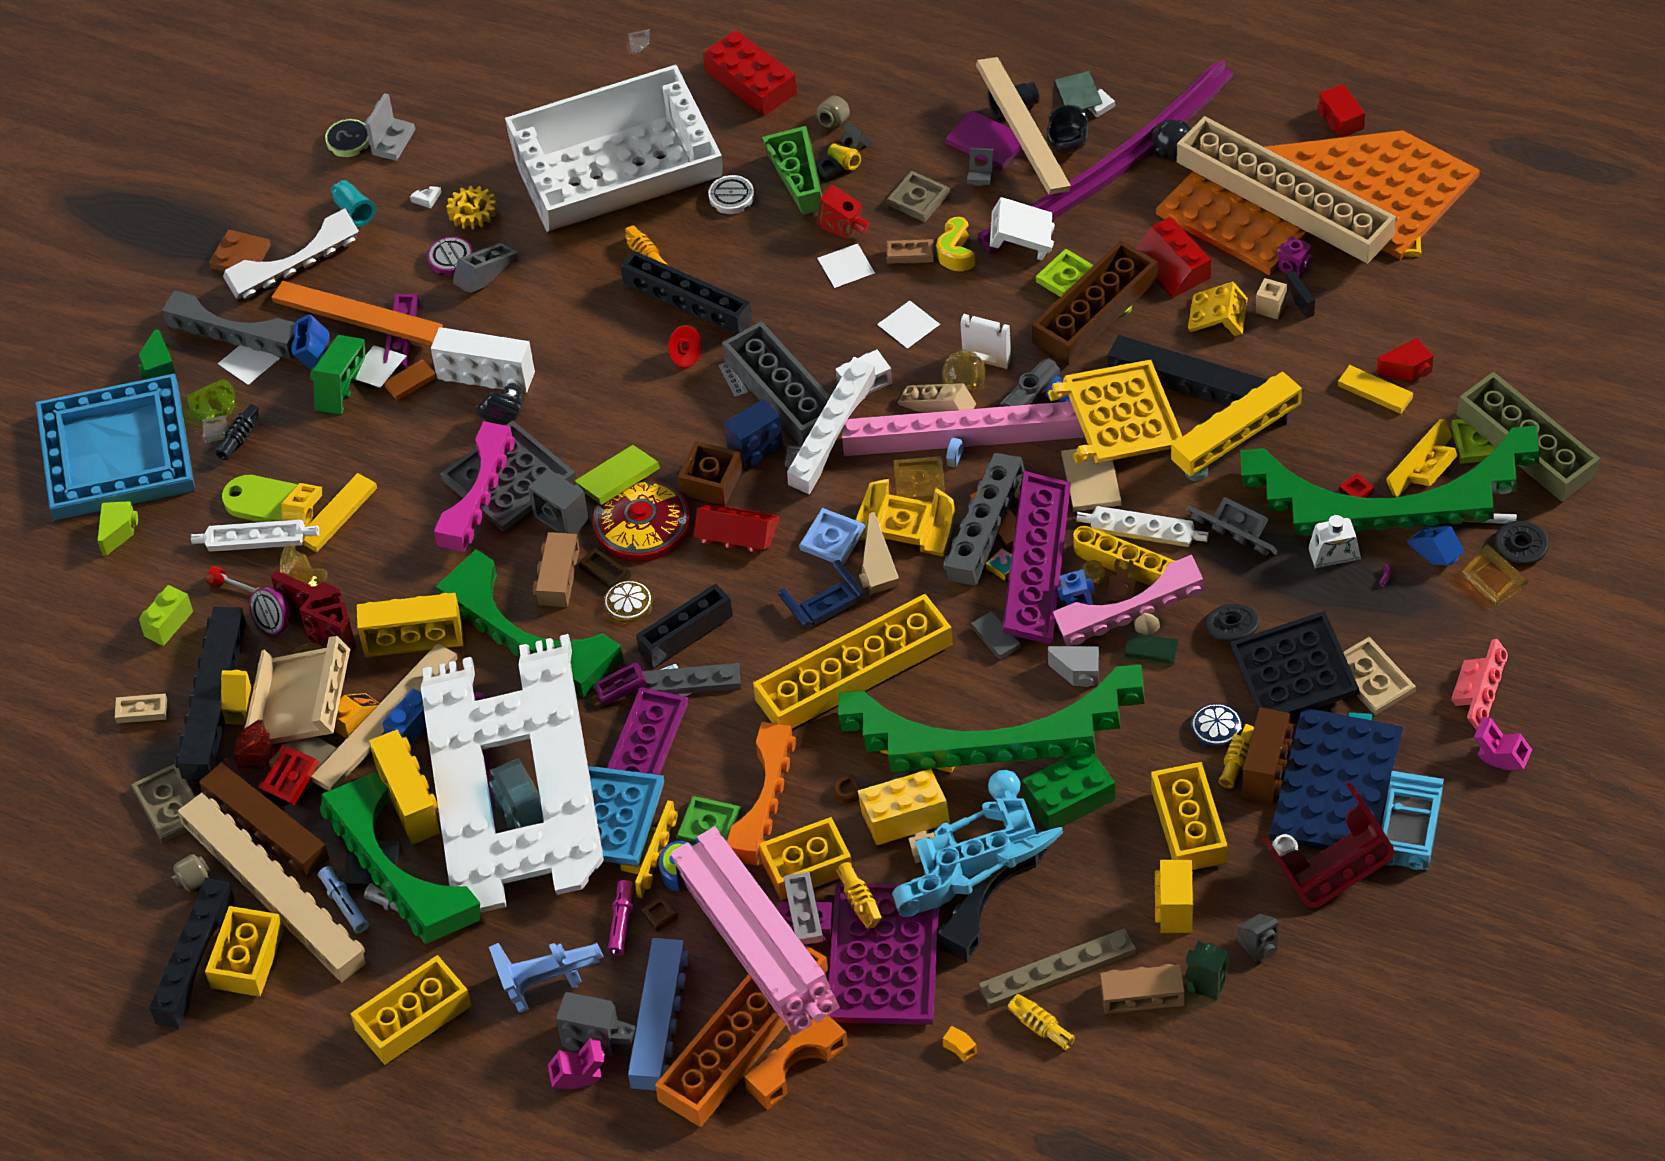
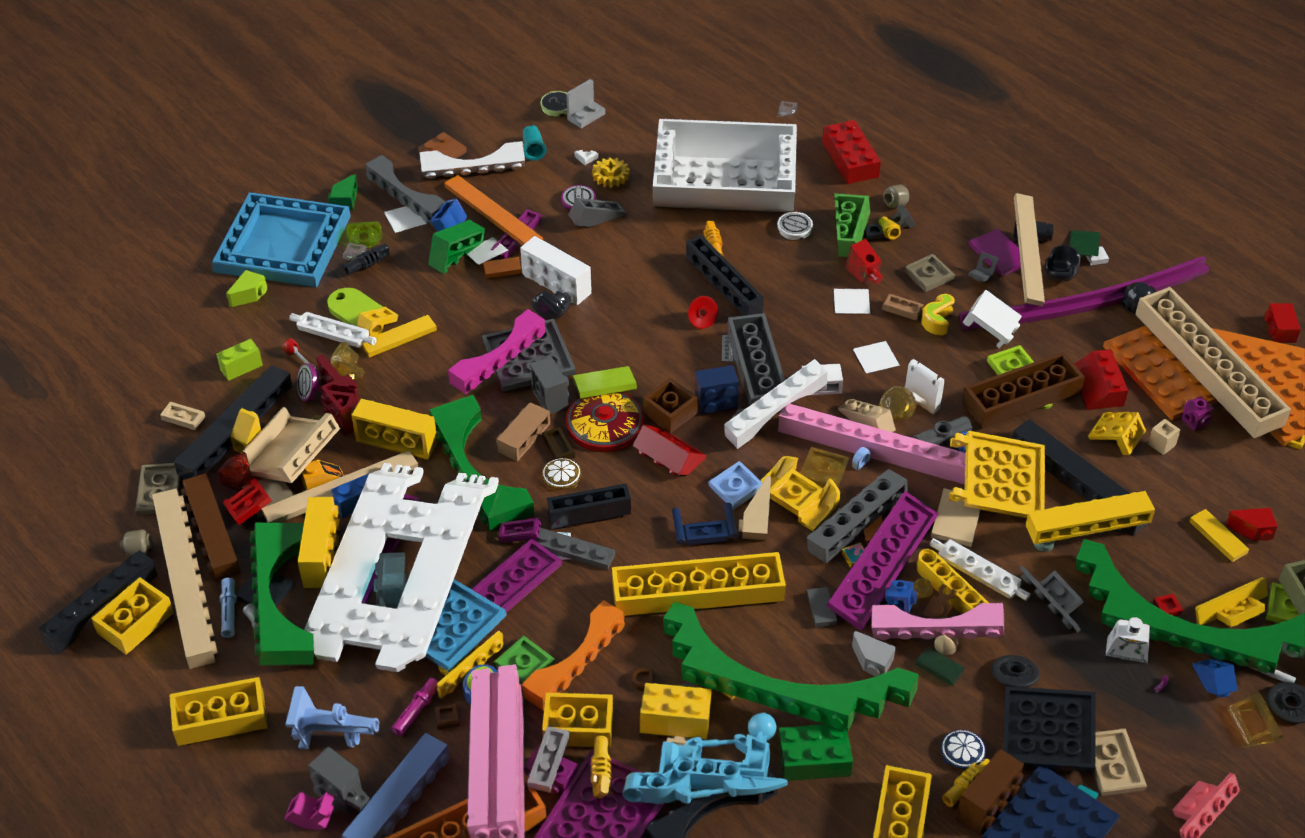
camera: 20 degrees right, 5 degrees down
(1301, 295) = (1189, 443): black tile -> none

